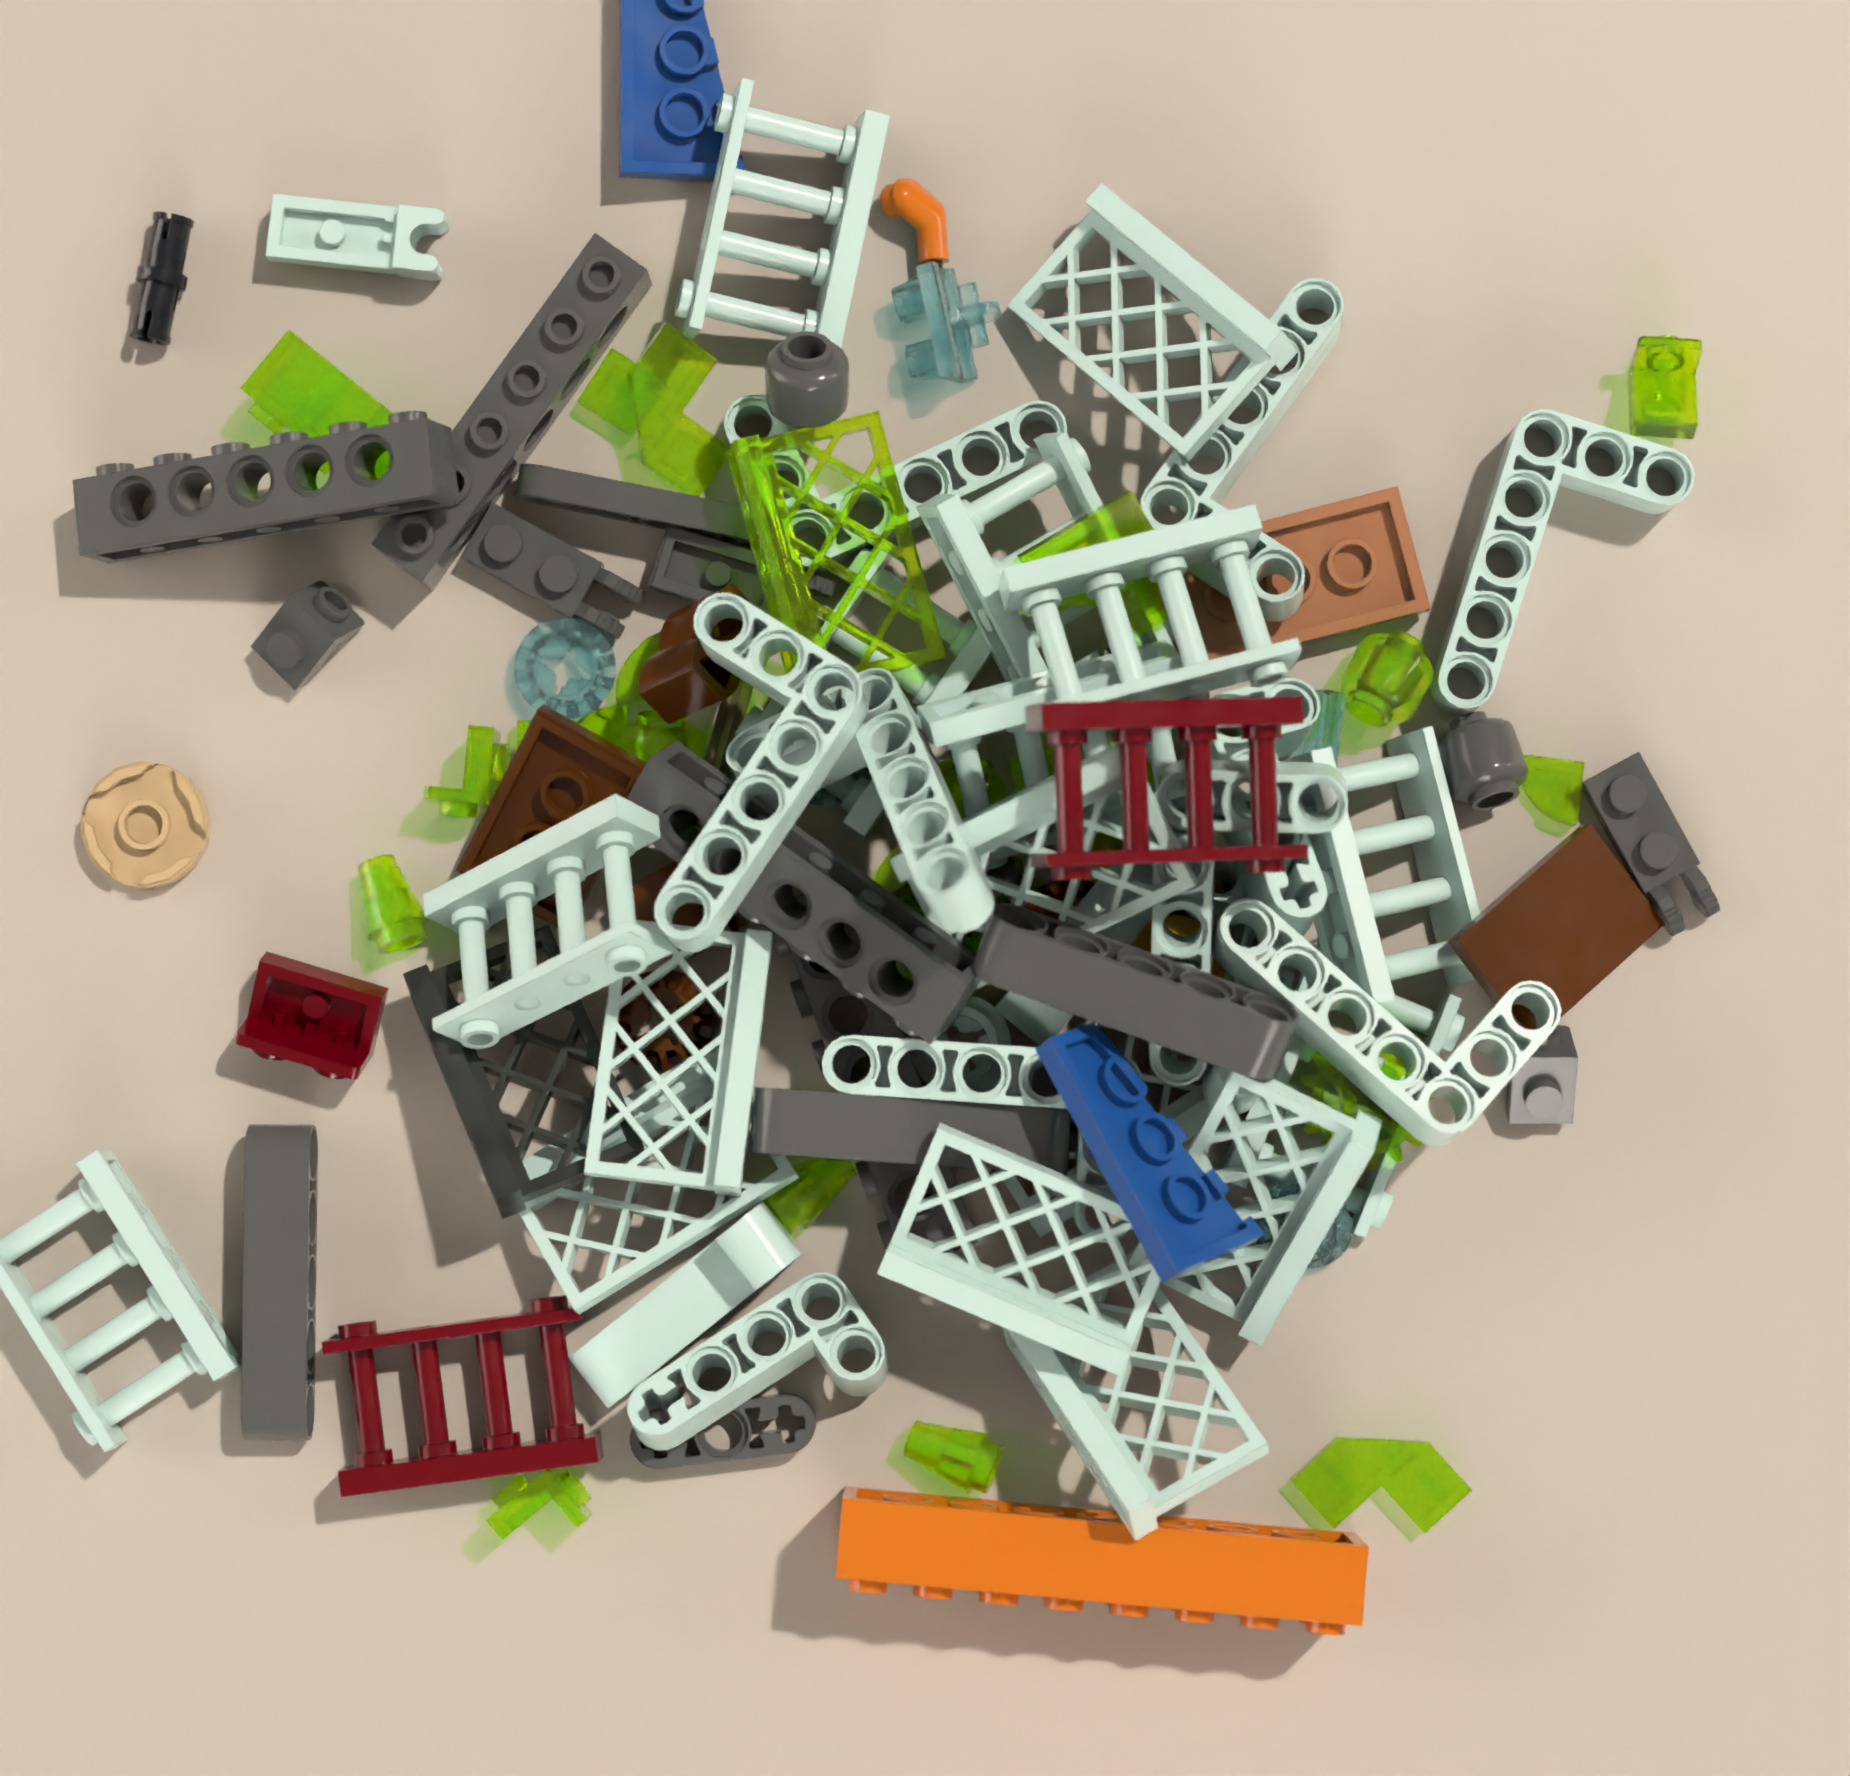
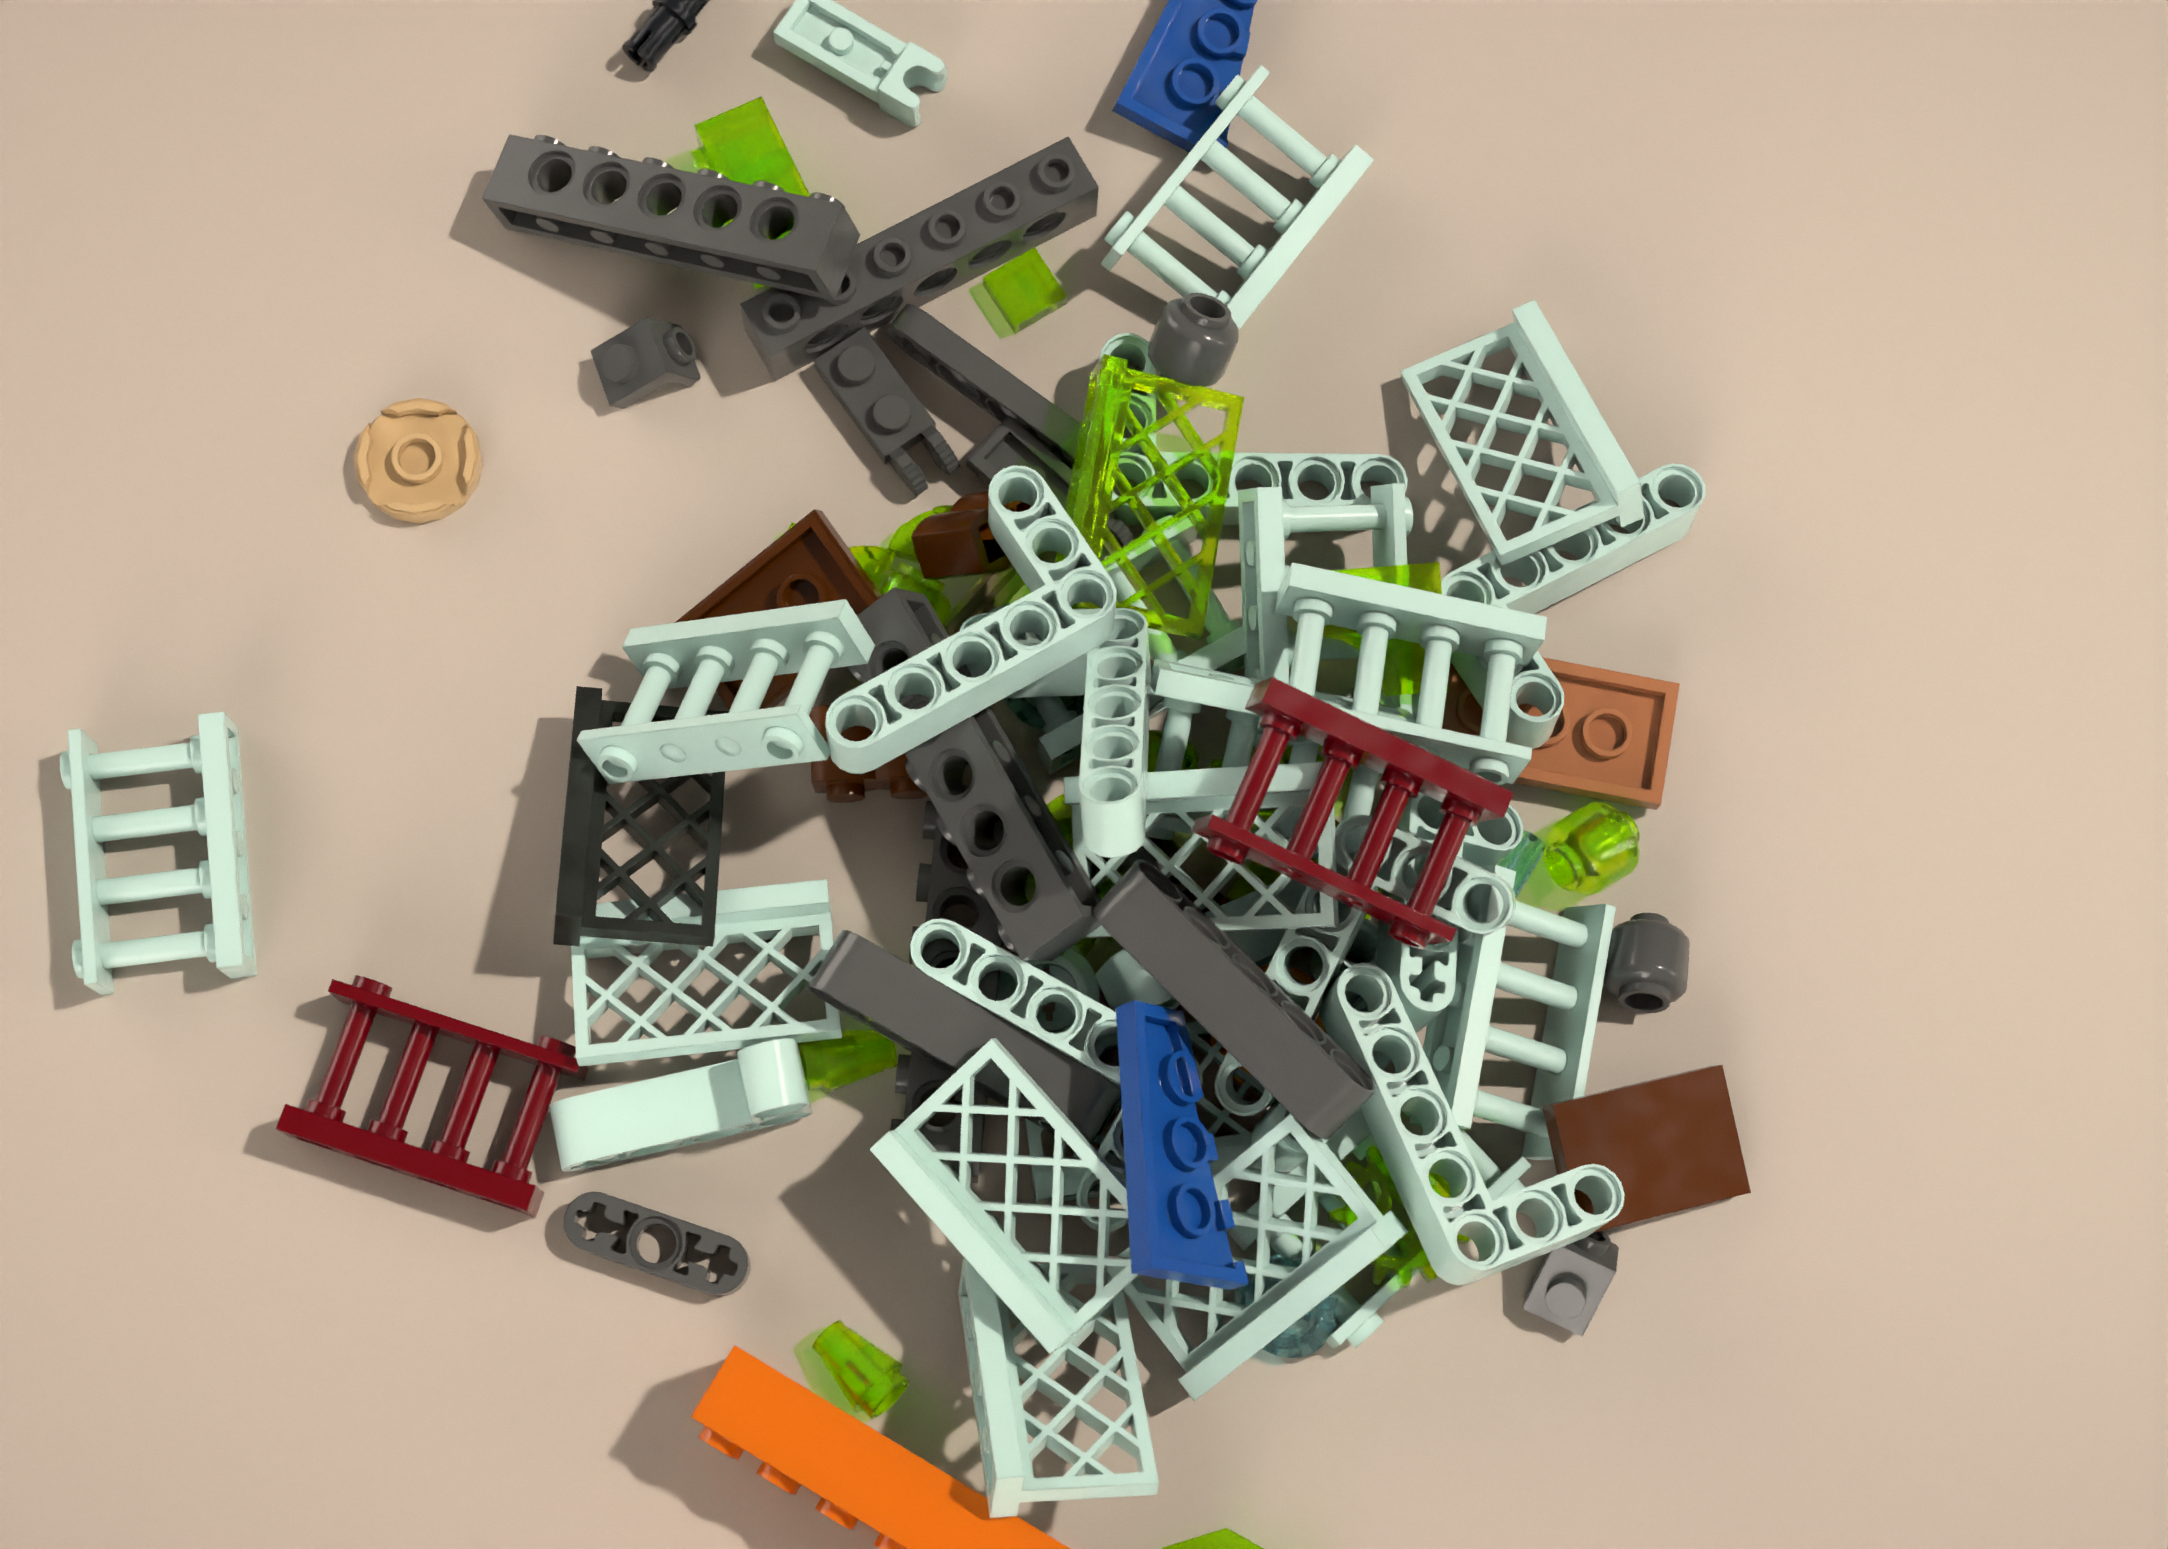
camera: 15 degrees right, 10 degrees down
(279, 1282) = (323, 913): dark grey beam -> none
(312, 1017) = (477, 691): dark red bracket -> none
(390, 906) = (596, 629): clear neon green cone -> none
(484, 766) = (740, 543): clear neon green bracket -> none
(523, 1499) = (441, 1217): clear neon green bracket -> none
(553, 641) = (859, 471): clear light blue gear -> none
(660, 390) = (1060, 297): clear neon green tile -> none
(672, 991) = (809, 821): reddish brown gear -> none
(733, 1076) = (832, 909): light aqua fence -> none
(753, 1372) = (712, 1199): light aqua beam -> none
(924, 212) = (1366, 264): orange arm -> none
(954, 322) = (1348, 359): clear light blue hips -> none
(1524, 535) = (1771, 778): light aqua beam -> none
(1555, 787) = (1702, 1021): clear neon green tile -> none
(1648, 838) = (1769, 1108): dark grey hinge -> none
(1664, 387) = (1962, 708): clear neon green bracket -> none

